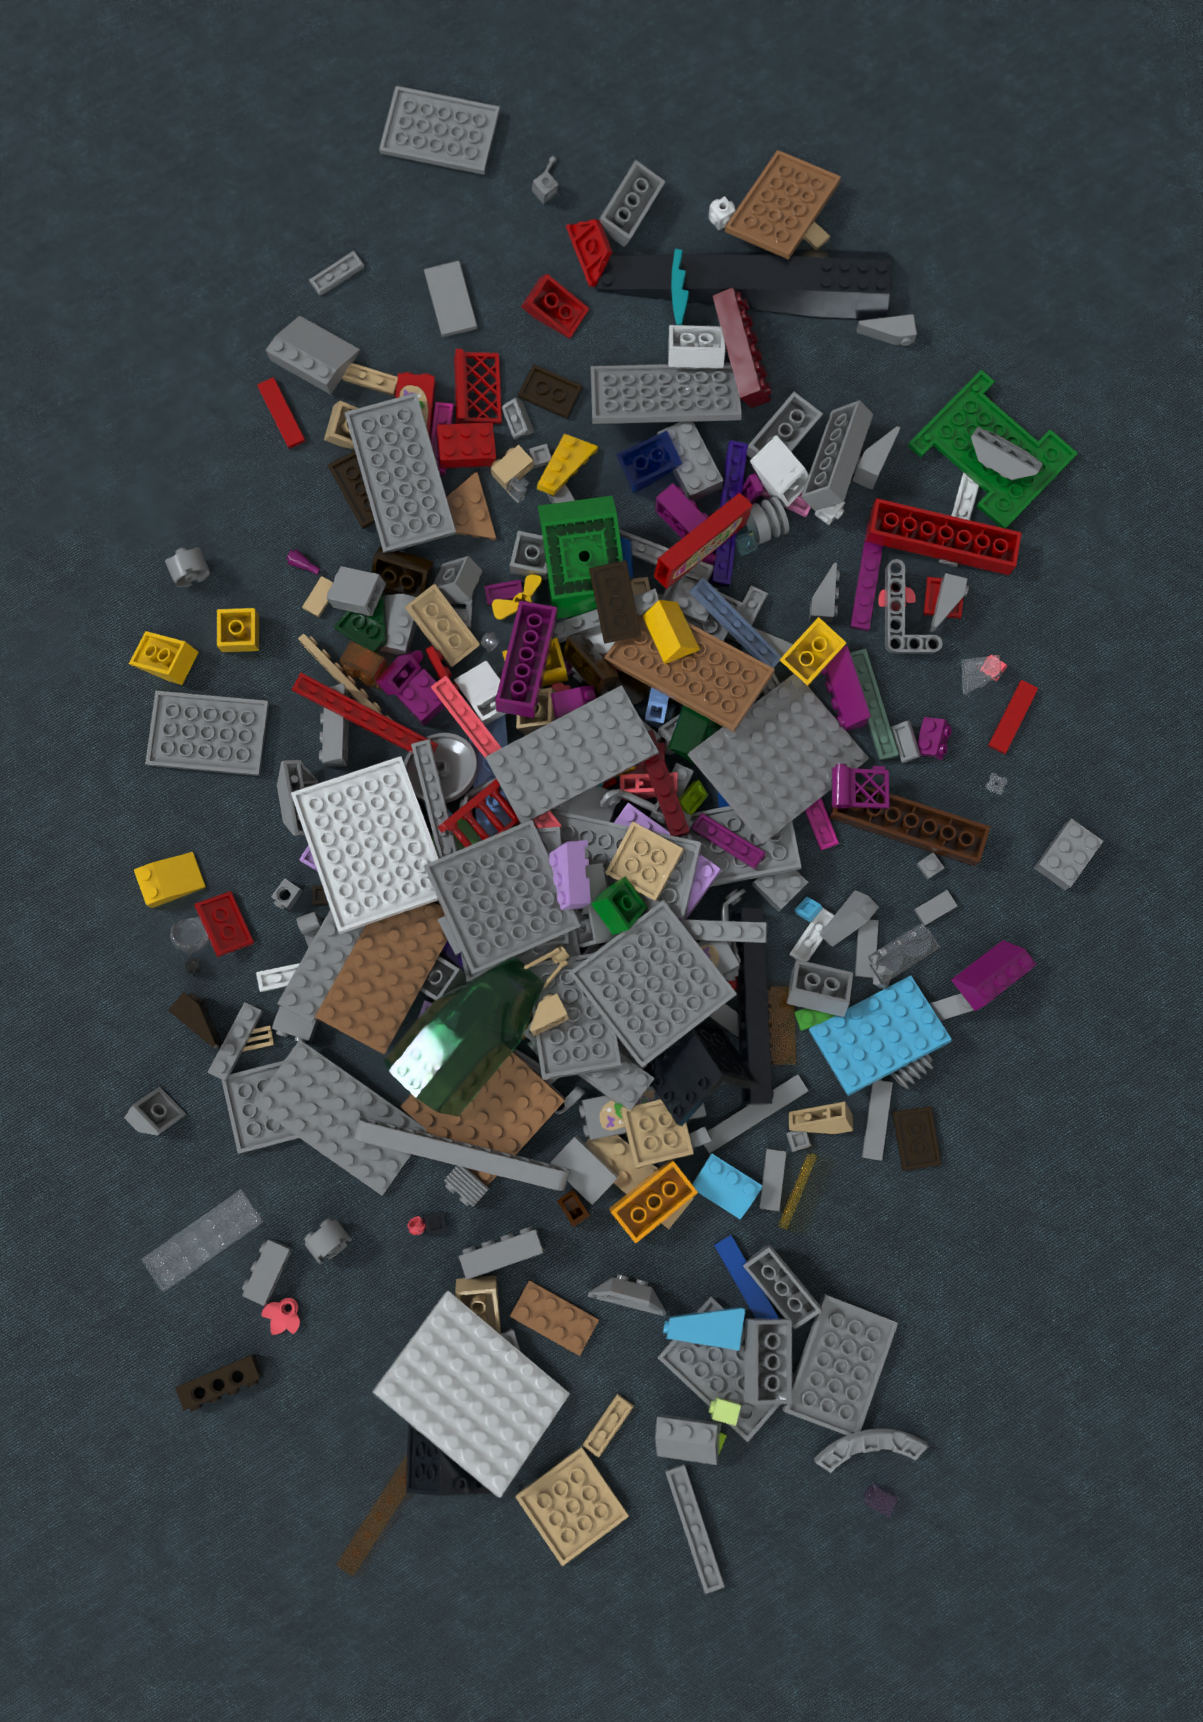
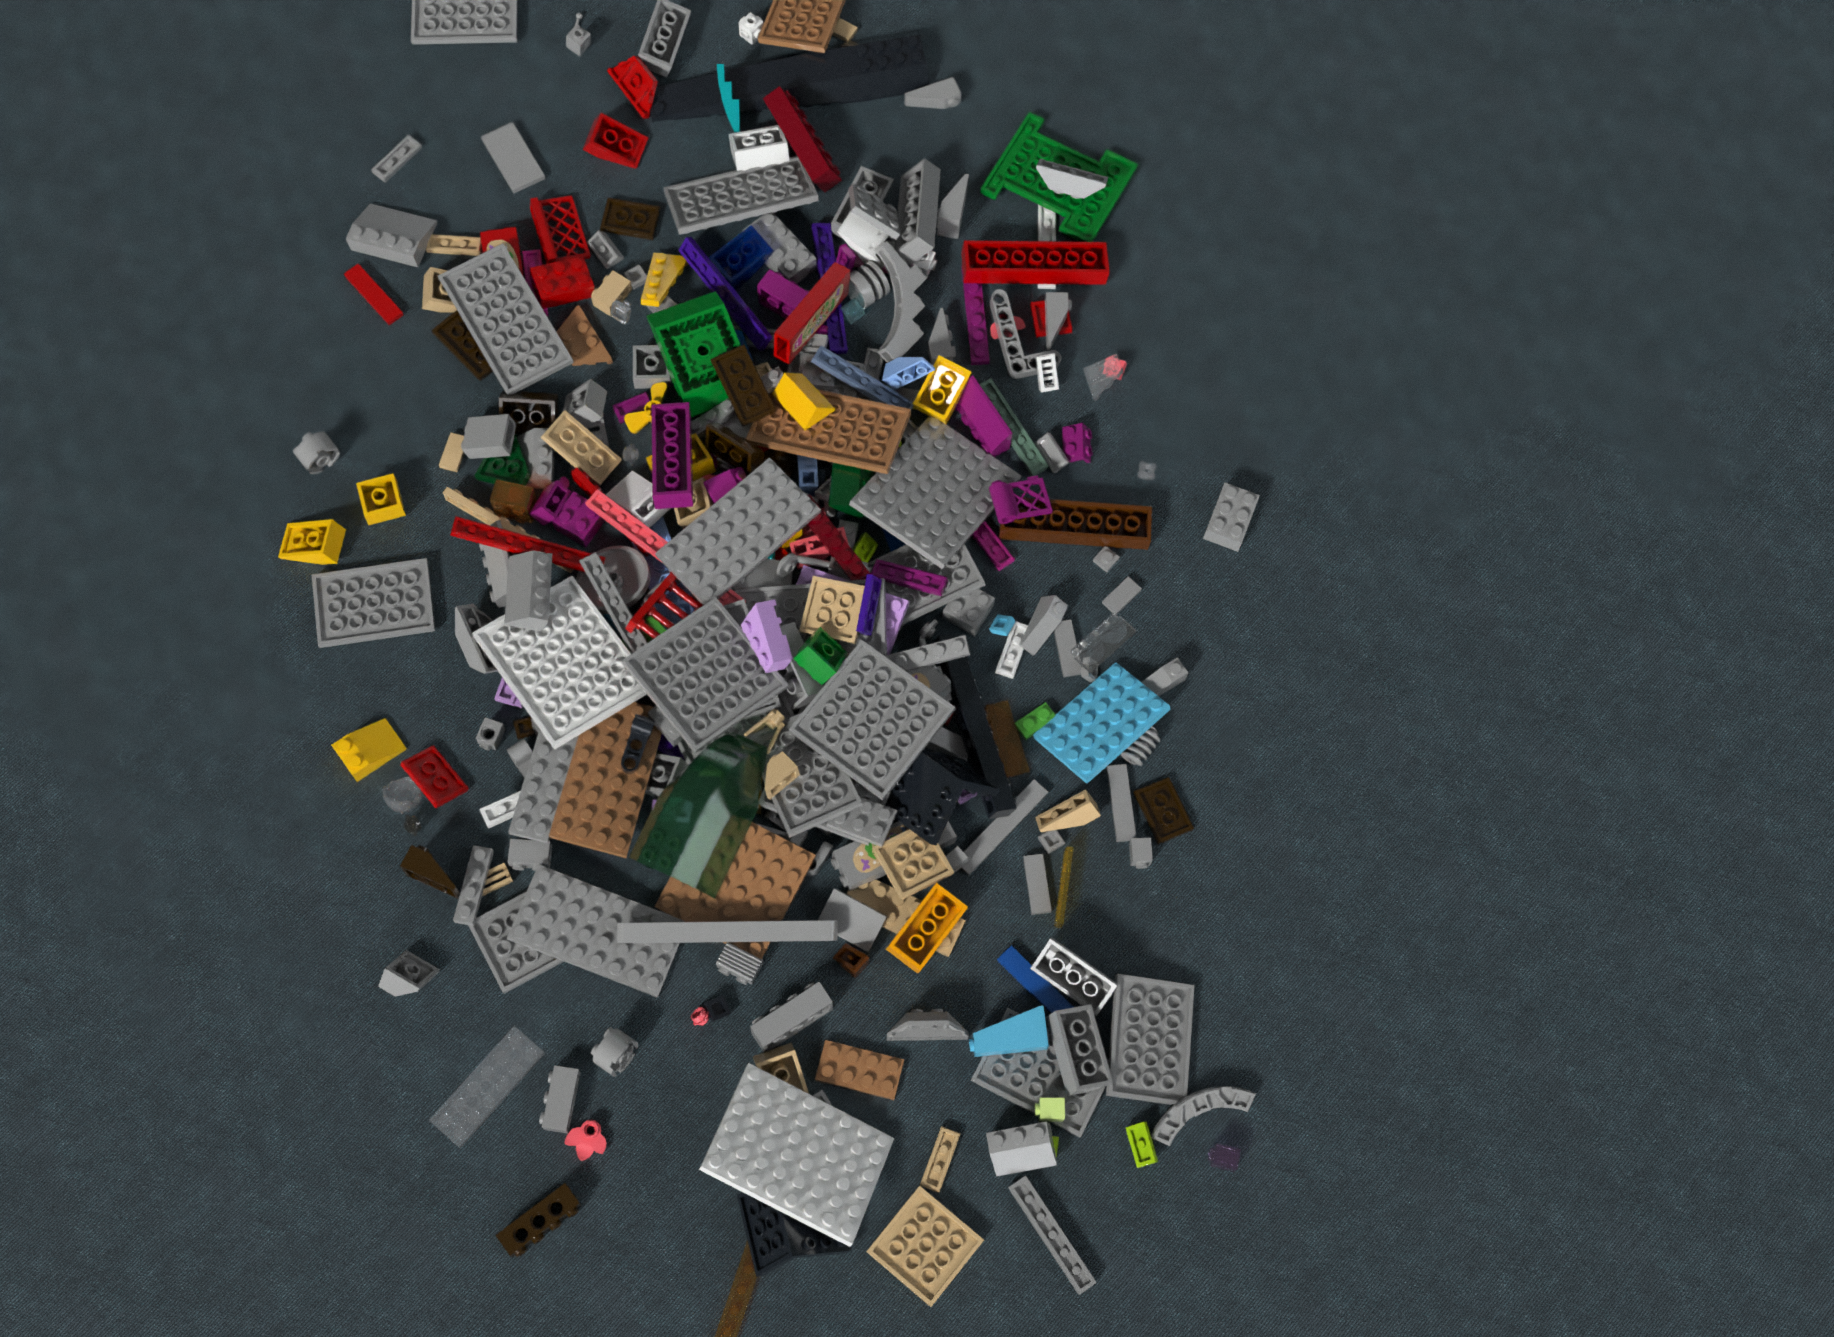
camera: 20 degrees left, 10 degrees down
(297, 559) = (423, 422): magenta cone -> none
(353, 764) = (528, 590): none -> light grey slope
(426, 936) = (640, 731): none -> black piece
(623, 496) = (734, 304): none -> dark purple plate
(679, 867) = (869, 605): none -> dark purple tile
(726, 1186) = (994, 899): medium azure slope -> none
(779, 622) = (905, 370): none -> light blue slope
(793, 447) = (874, 211): none -> light grey plate
(802, 552) = (905, 281): none -> light grey arch
(804, 1465) = (1141, 1144): none -> lime plate
(820, 988) = (1033, 692): light grey brick -> none
(882, 1176) = (1140, 852): none -> light grey brick
(922, 670) = (1054, 385): none -> white slope
(993, 973) = (1192, 638): magenta slope -> none
(1012, 717) = (1145, 408): red tile -> none

